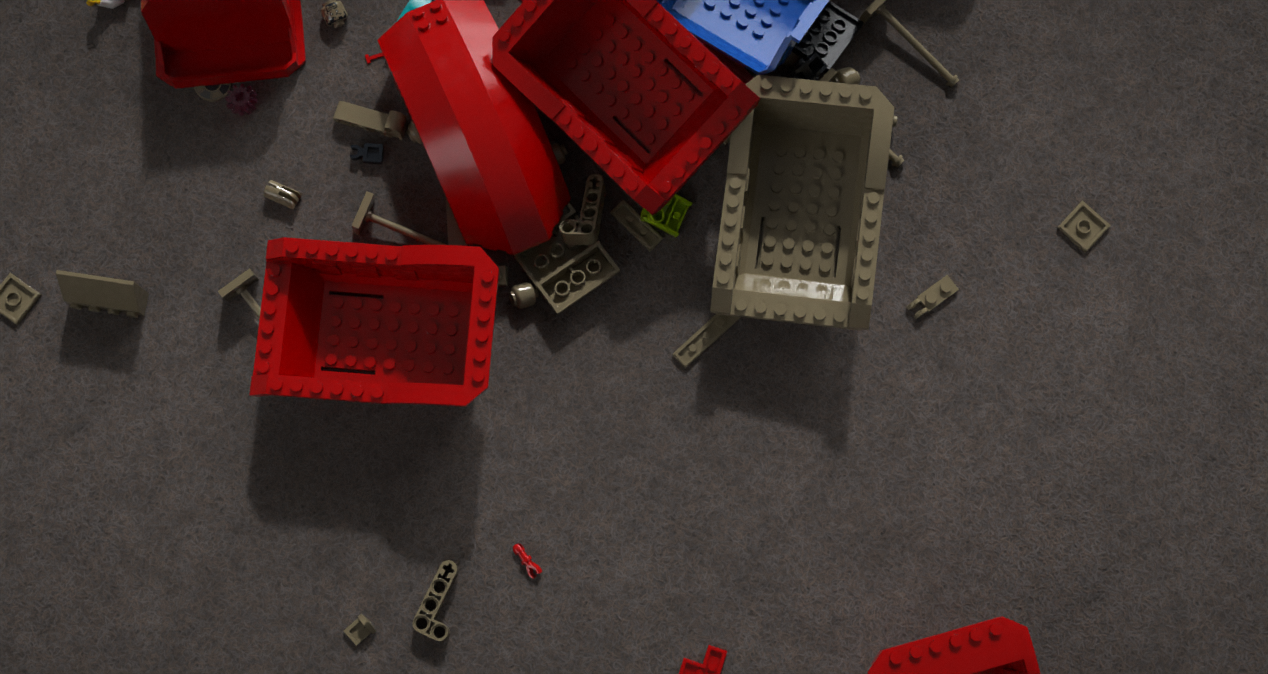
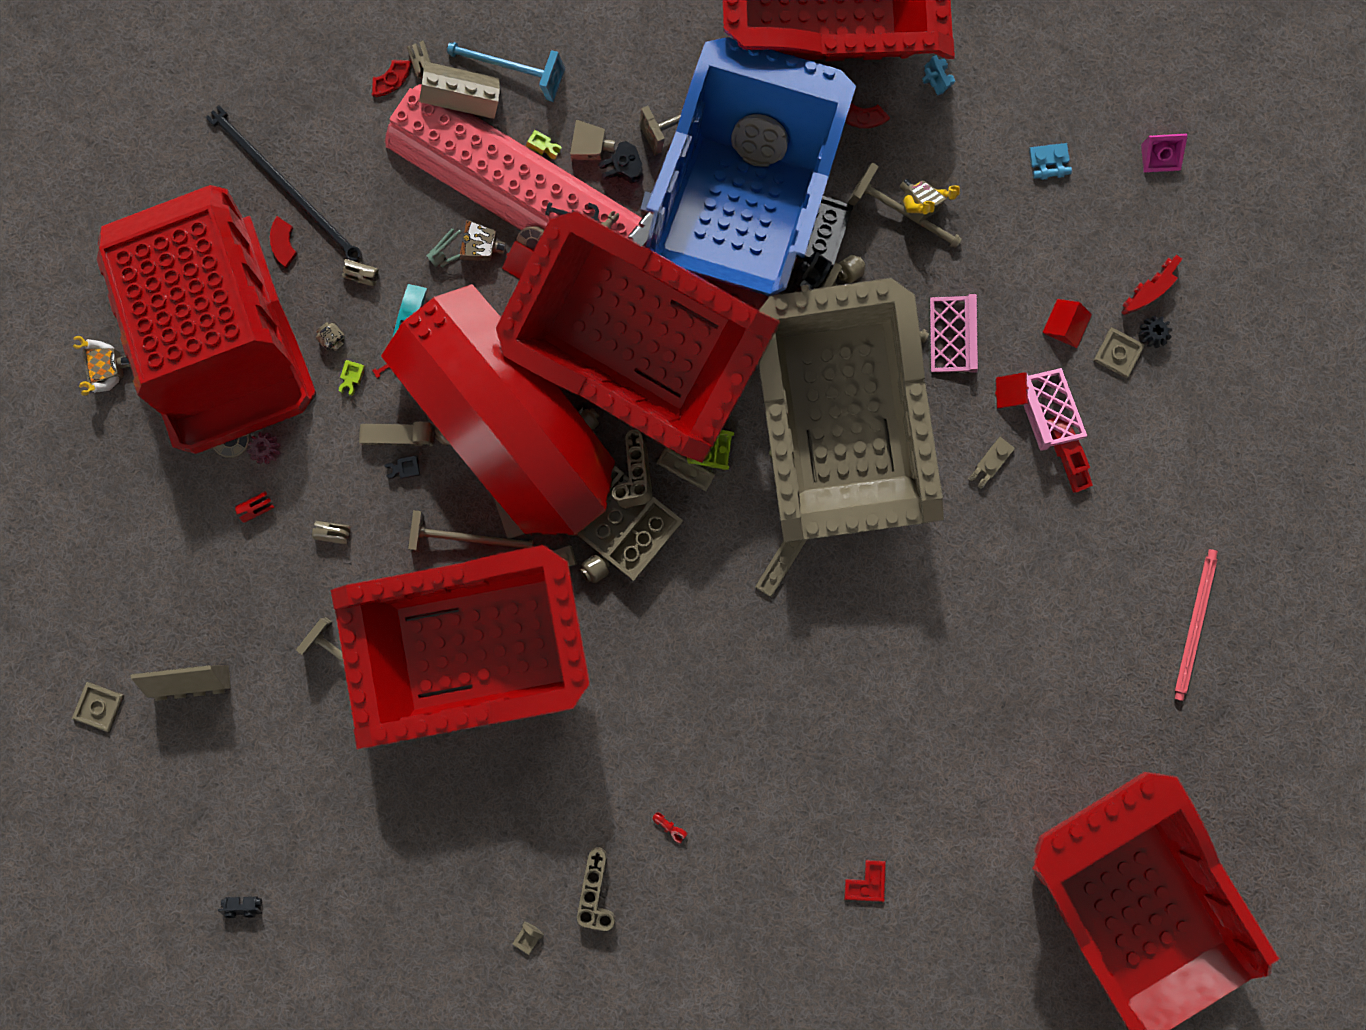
camera: 10 degrees left, 5 degrees up
(85, 522) = (248, 909): none -> black hinge
(212, 157) = (251, 509): none -> red arm
(344, 53) = (351, 373): none -> lime plate
(932, 34) = (923, 200): none -> torso
(944, 170) = (970, 333): none -> bright pink fence
(969, 233) = (1011, 390): none -> red piece
(987, 262) = (1036, 416): none -> bright pink fence
(1011, 306) = (1073, 458): none -> red slope
(1041, 184) = (1067, 322): none -> red slope
(1065, 25) = (1050, 155): none -> dark azure plate
(1091, 505) = (1196, 625): none -> coral piece
(1118, 218) = (1152, 337): none -> black gear
(1130, 176) = (1153, 288): none -> red slope
(1175, 50) = (1163, 152): none -> dark pink slope

